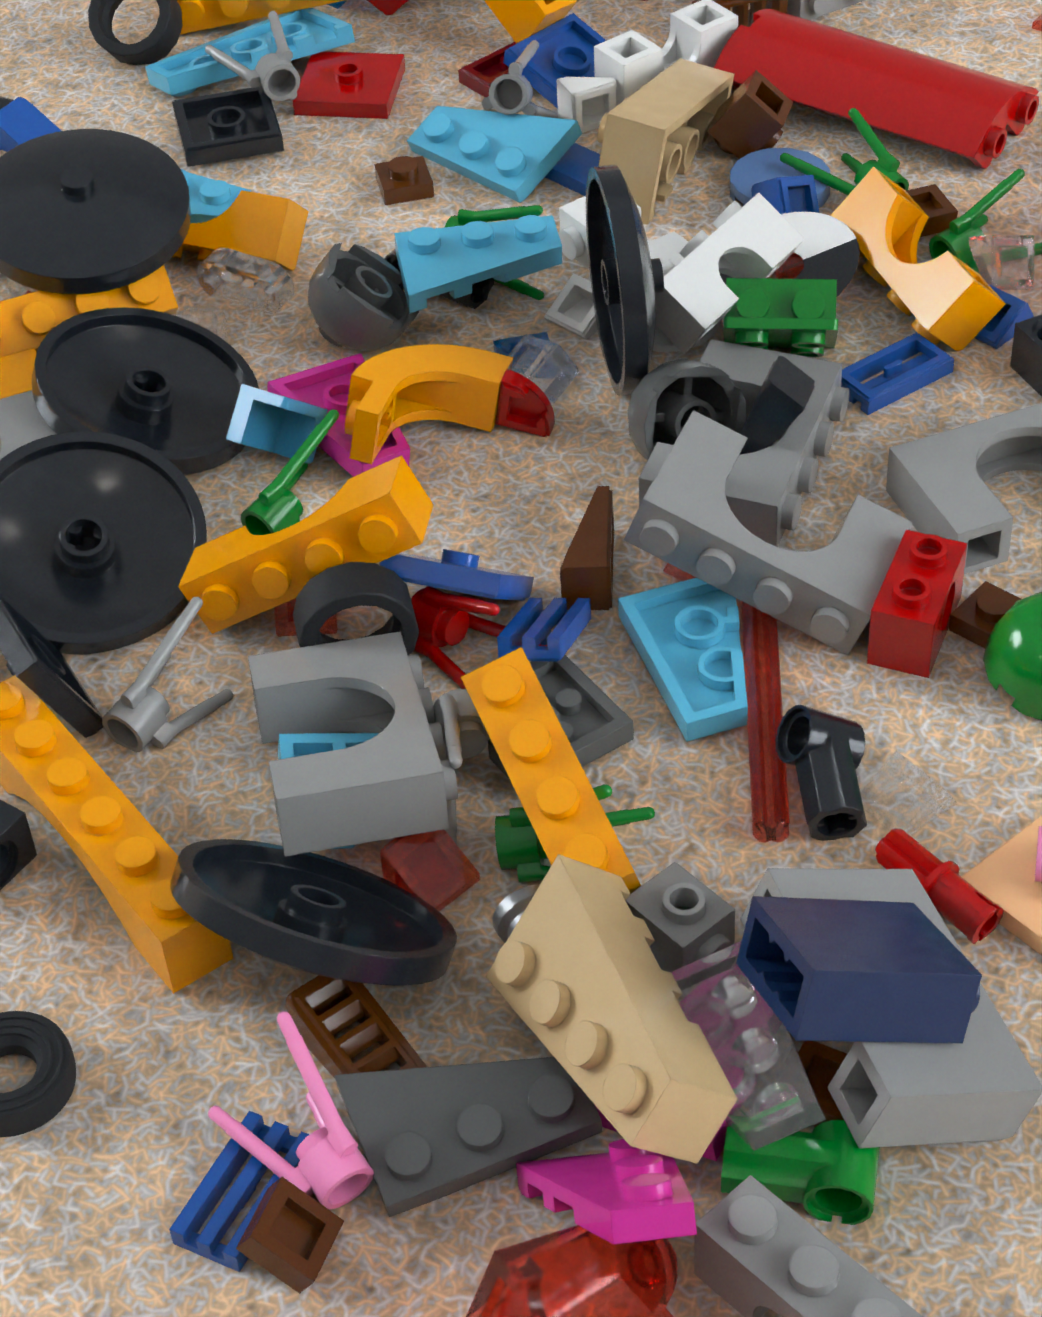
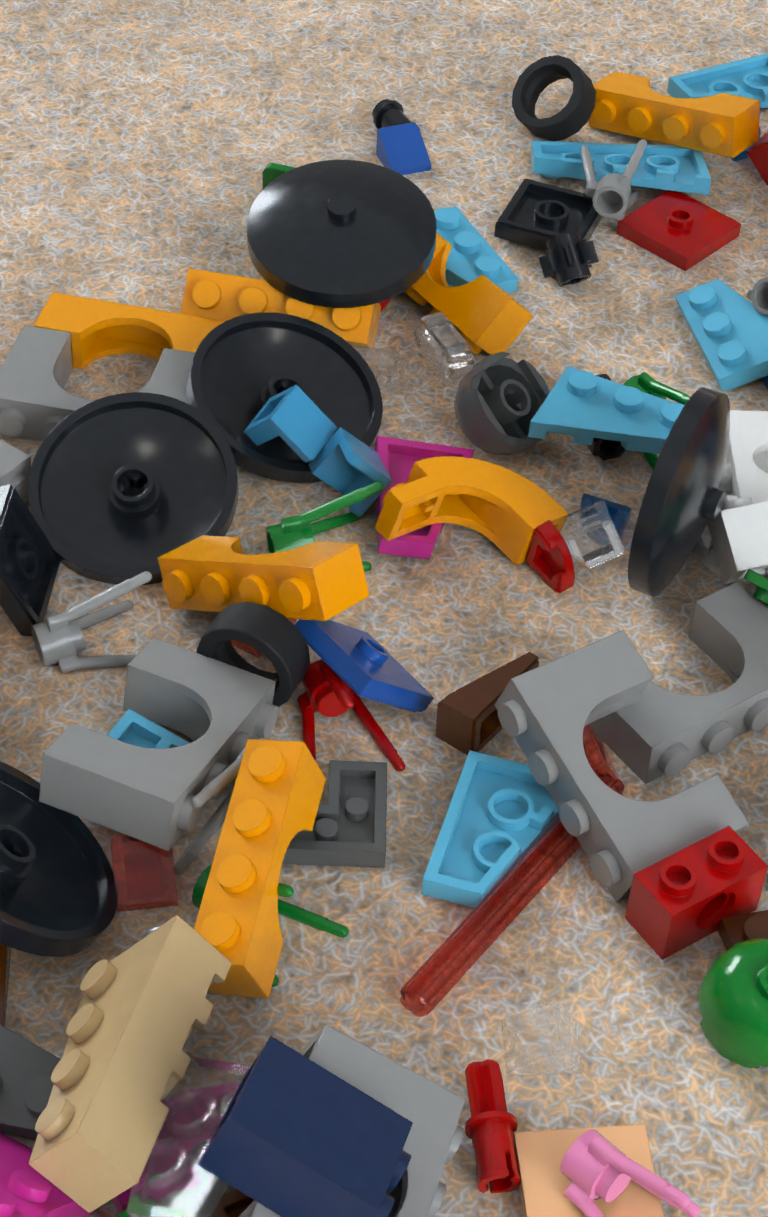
camera: 30 degrees right, 0 degrees up
(184, 398) = (295, 420): none -> dark azure panel
(285, 151) = (568, 259): none -> black gear
(404, 180) = (645, 327): reddish brown plate -> none
(534, 625) = (390, 742): blue tile -> none
(671, 393) = (665, 627): dark grey cylinder -> none
(682, 917) = (263, 1011): light grey brick -> none
(777, 405) = (719, 662): black slope -> none
(826, 761) = (499, 970): black piece -> none

